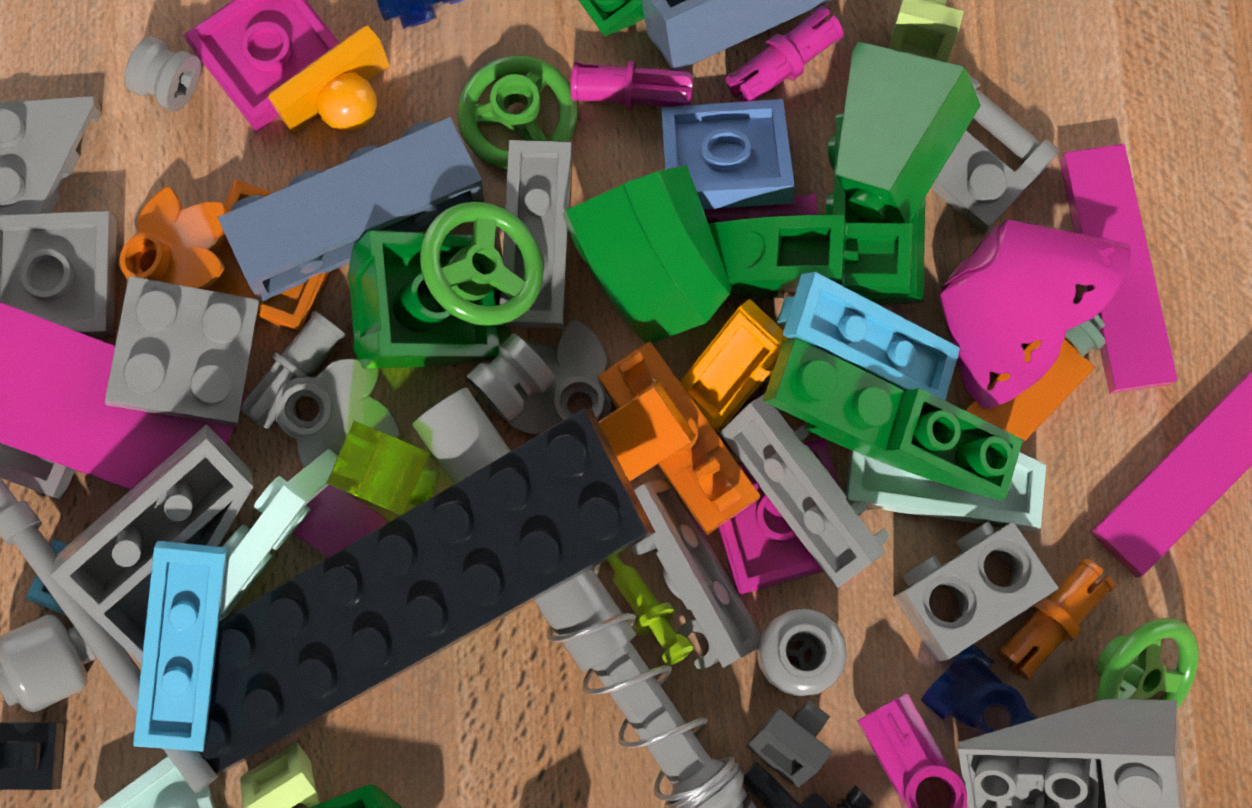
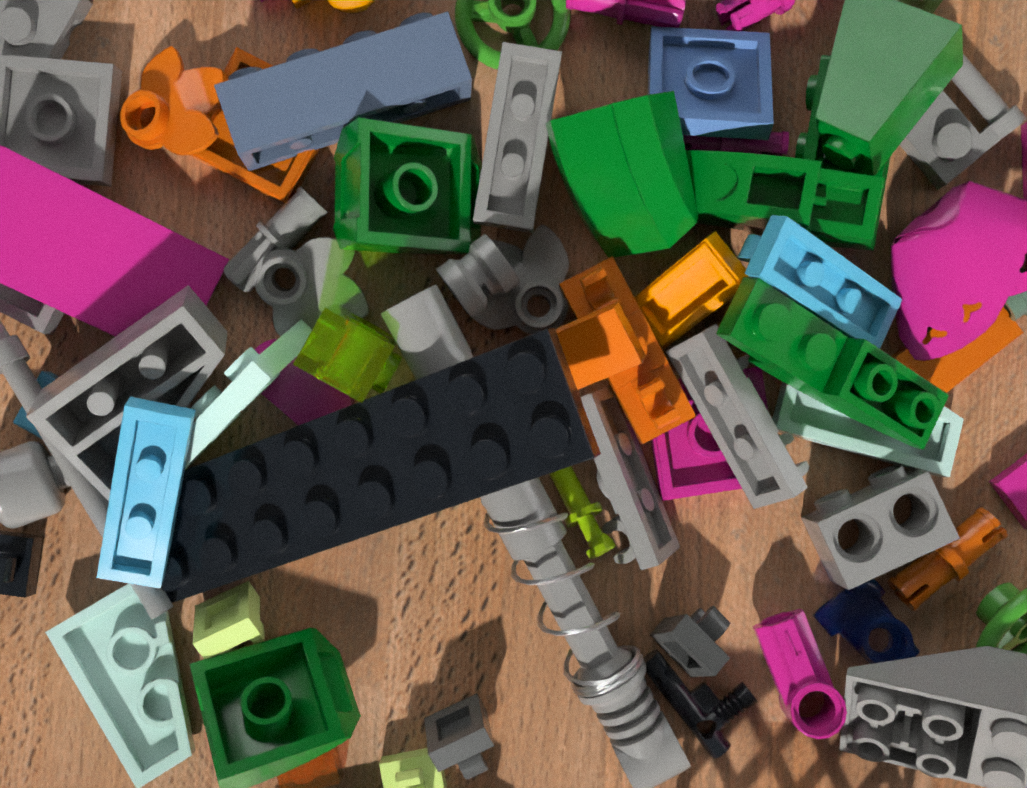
camera: 10 degrees right, 10 degrees up
(182, 351) = (170, 211): light grey plate -> none
(462, 282) = (443, 177): bright green piece -> none
(818, 636) = (721, 583): light grey head -> none

